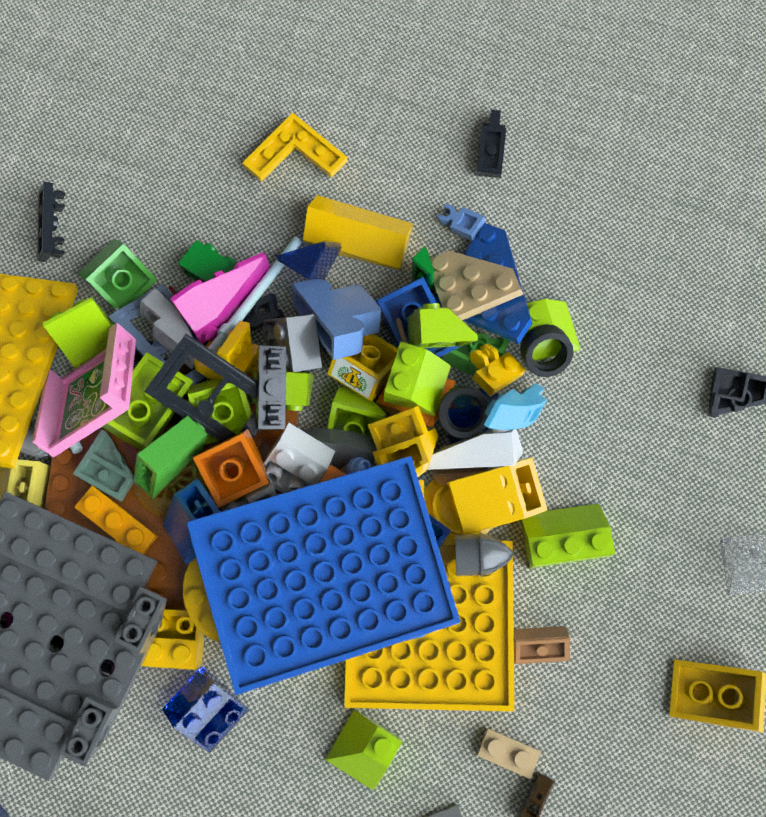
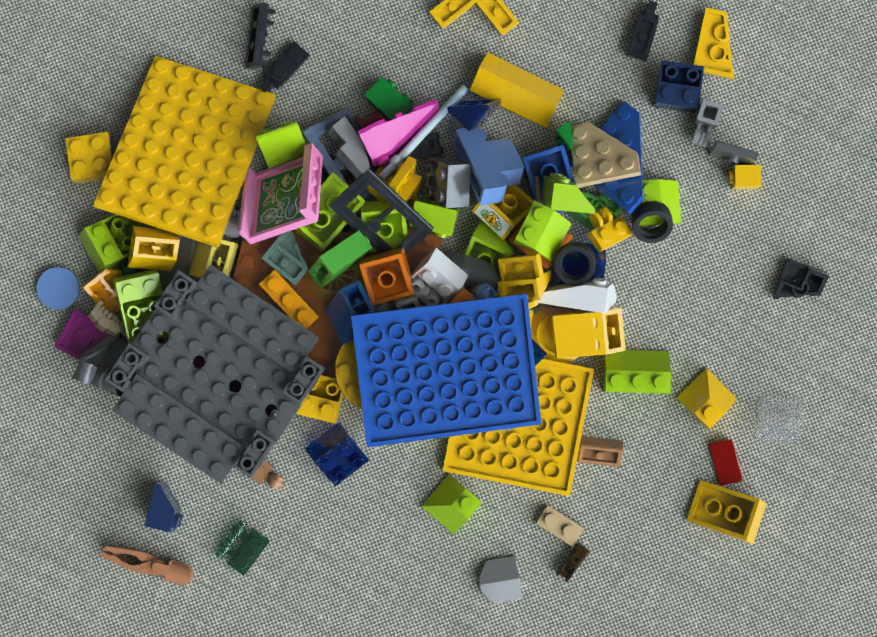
camera: 10 degrees right, 10 degrees up
(82, 251) = (284, 67): none -> black hinge
(112, 750) = (274, 480): none -> medium nougat plate
(117, 275) = (311, 94): bright green slope -> none
(270, 387) = (427, 218): plate -> none
(463, 223) = (606, 98): medium blue plate -> none
(480, 554) = (566, 375): dark grey helmet -> none
(515, 409) = (616, 268): medium azure slope -> none
(544, 195) = (678, 86): none -> dark blue slope
(573, 147) = (714, 45): none -> yellow wing
(585, 226) = (706, 119): none -> light grey brick
(626, 256) = (733, 154): none -> dark grey plate
(645, 282) = (745, 177): none -> yellow brick
(659, 555) = (706, 399): none -> yellow slope
(702, 630) = (725, 462): none -> red slope

